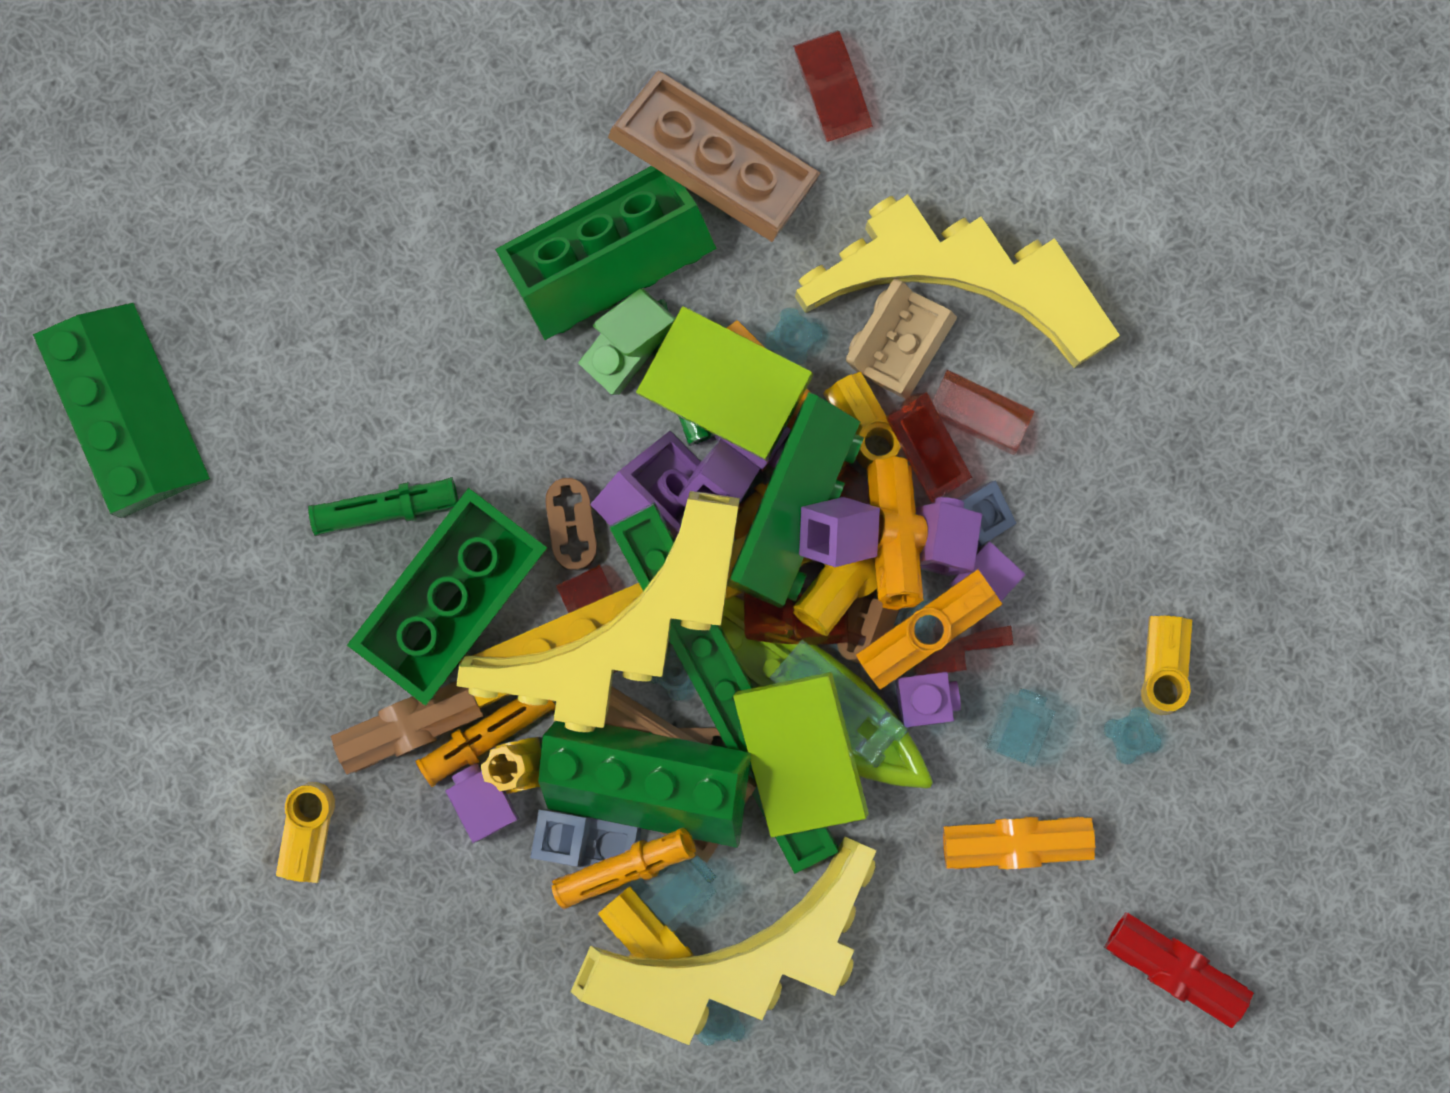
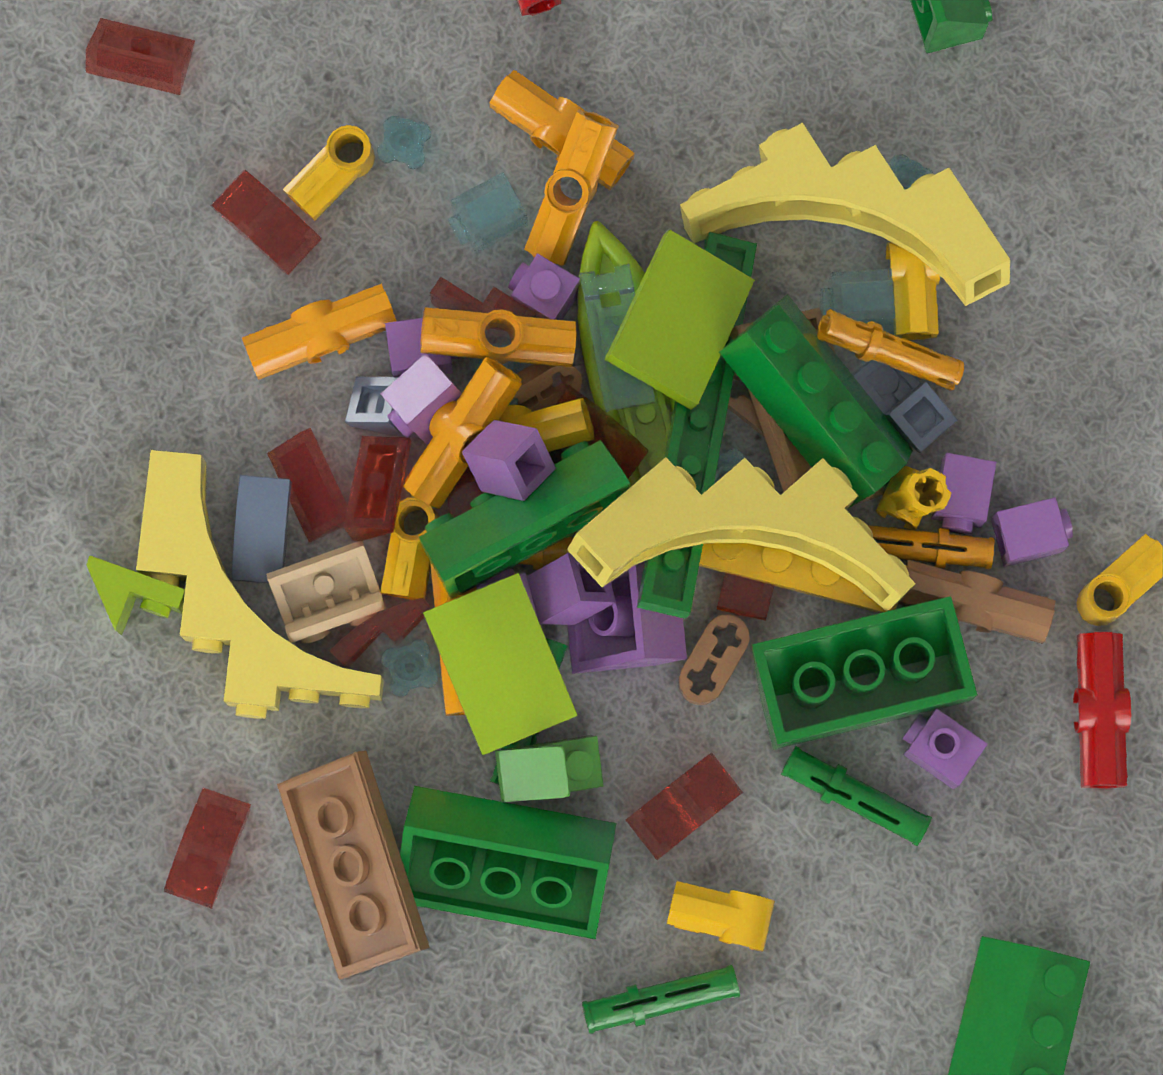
camera: 140 degrees left, 5 degrees down
(247, 719) = (1102, 710): none -> red piece
(344, 592) = (943, 747): none -> medium lavender brick
(405, 814) = (1031, 531): none -> medium lavender brick
(411, 339) = (730, 916): none -> yellow piece
(445, 194) = (601, 1015): none -> green pin
(505, 396) = (684, 806): none -> clear red slope
(833, 352) = (393, 623): none -> clear red slope
(977, 818) = (582, 160): none -> light orange piece
(991, 349) = (260, 527): none -> sand blue slope
(1056, 219) = (120, 588): none -> lime slope
(1072, 533) = (319, 330): none -> light orange piece
(1184, 585) = (266, 222): none -> clear red slope
(1393, 639) = (139, 56): none -> clear red slope

